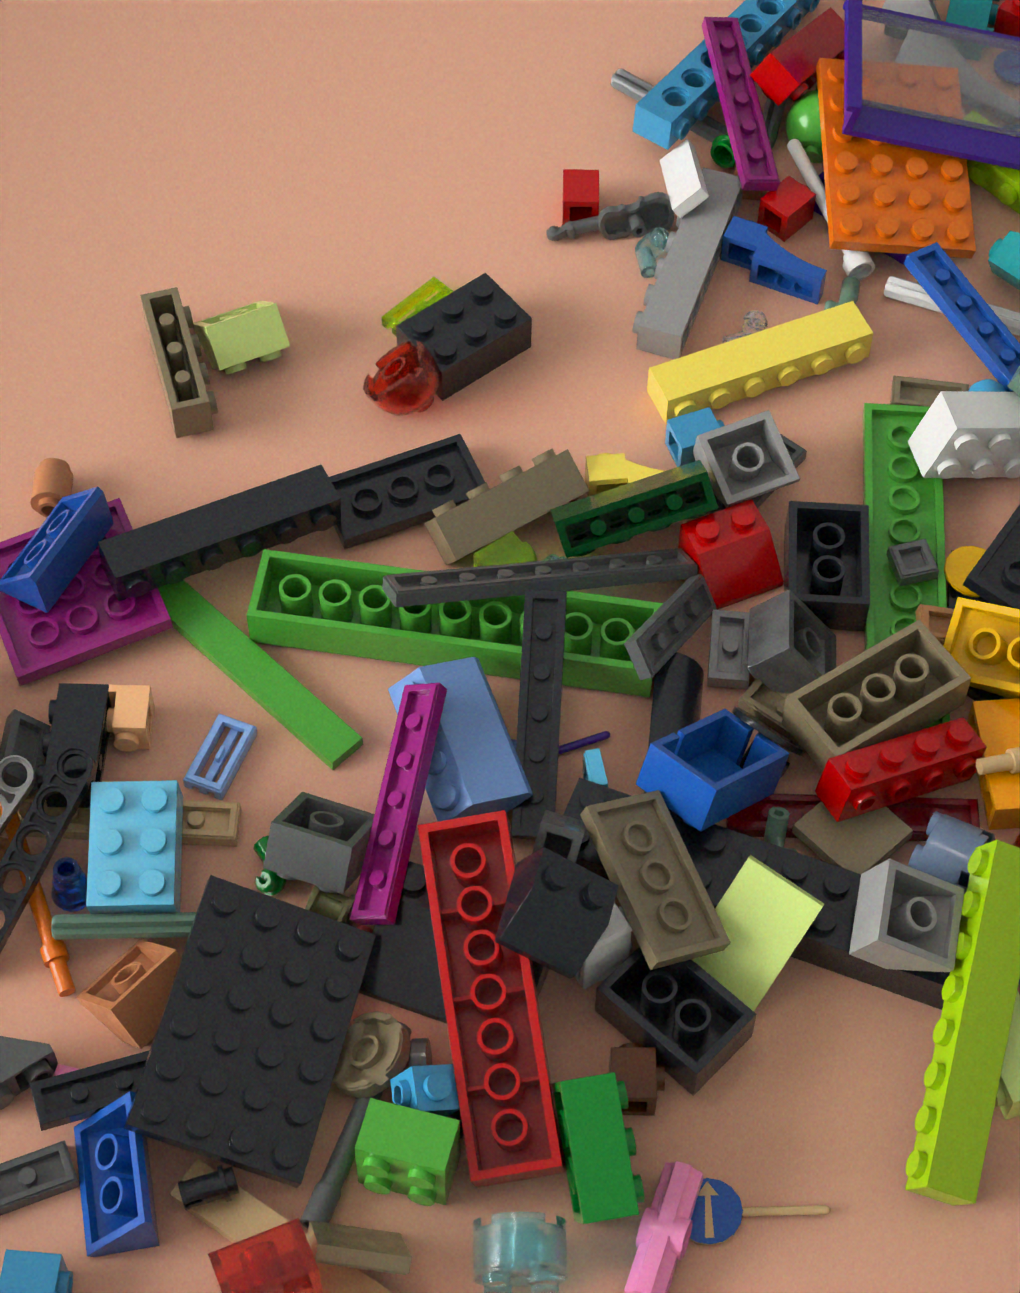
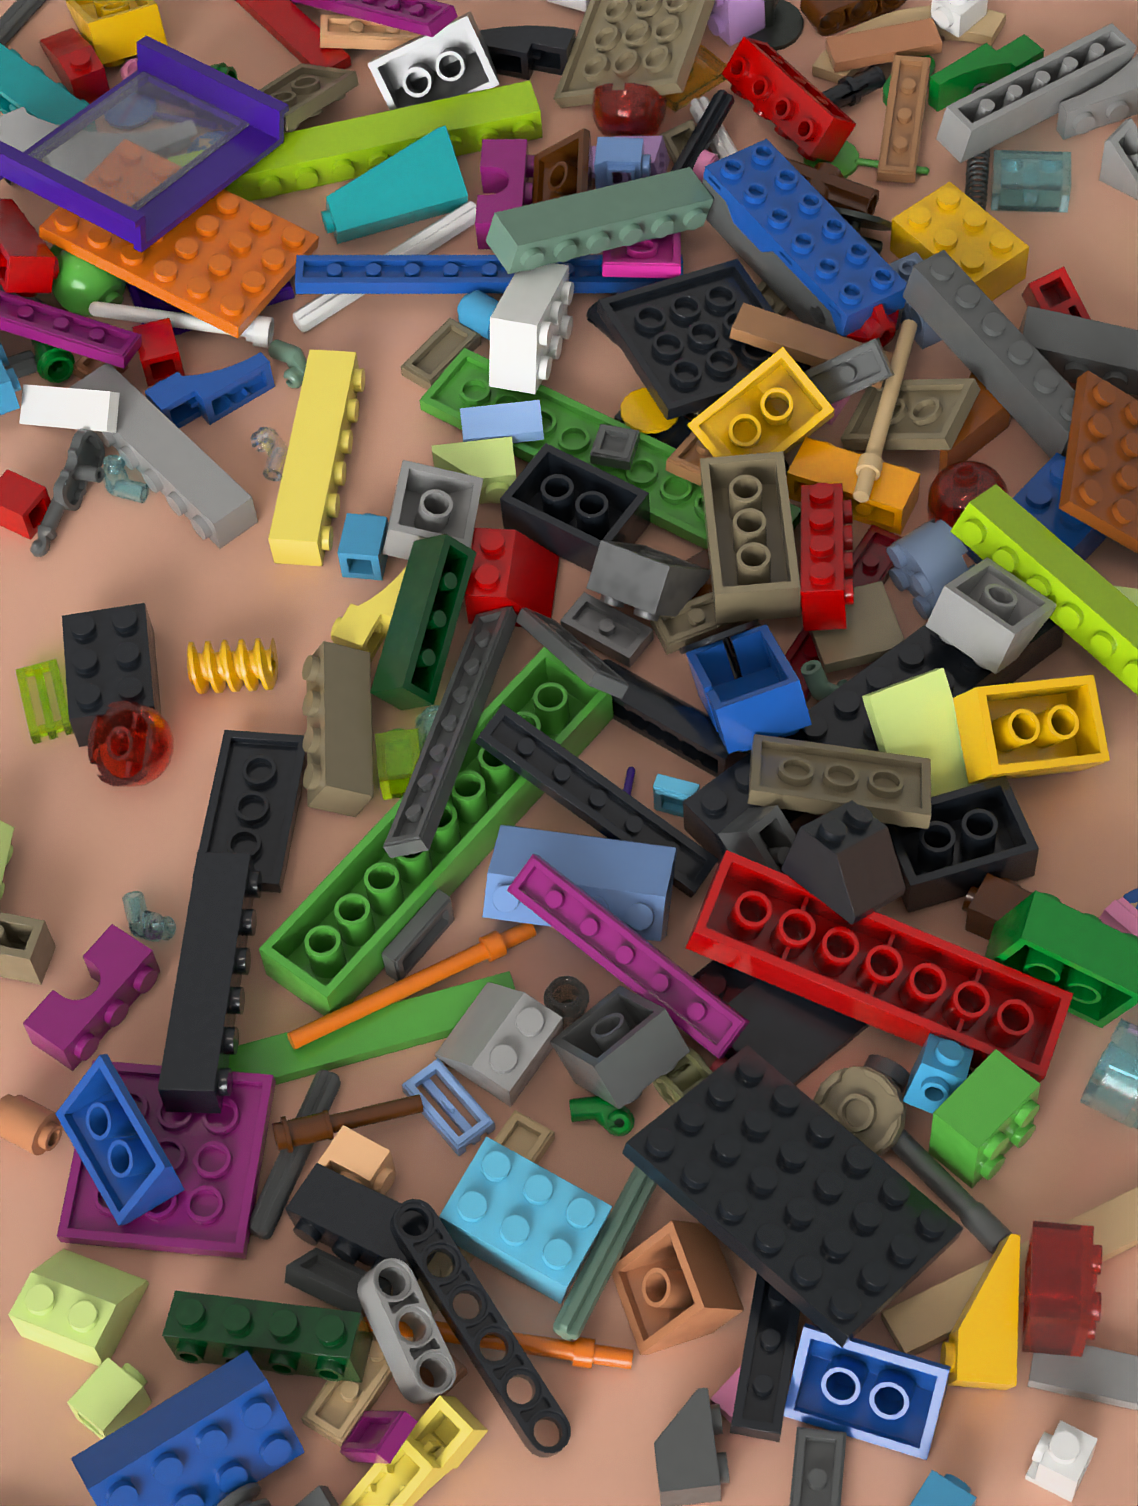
camera: 55 degrees left, 0 degrees up
(69, 885) = (520, 1302): clear blue cone -> none
(126, 671) = (289, 1165): none -> dark grey axle
(135, 664) = (322, 1125): none -> reddish brown pin
(146, 476) = (73, 1028): none -> magenta arch
(186, 1241) = (986, 1333): none -> yellow slope
(208, 1187) = (925, 1310): black pin -> none
(268, 466) = (145, 923): none -> clear light blue arm
(287, 759) = (501, 1041): none -> light grey slope
(344, 783) = (567, 998): none -> clear smoke cone
(354, 657) = (418, 936): none -> dark grey tile
(358, 1247) = (1064, 1195): dark tan tile -> none
(376, 713) = (489, 947): none -> orange bar
(522, 409) = (232, 666): none -> yellow piece
(820, 1015) = (1031, 728): none -> yellow brick
(829, 476) = (481, 458): none -> yellowish green slope
(877, 470) = (514, 420): none -> light blue tile

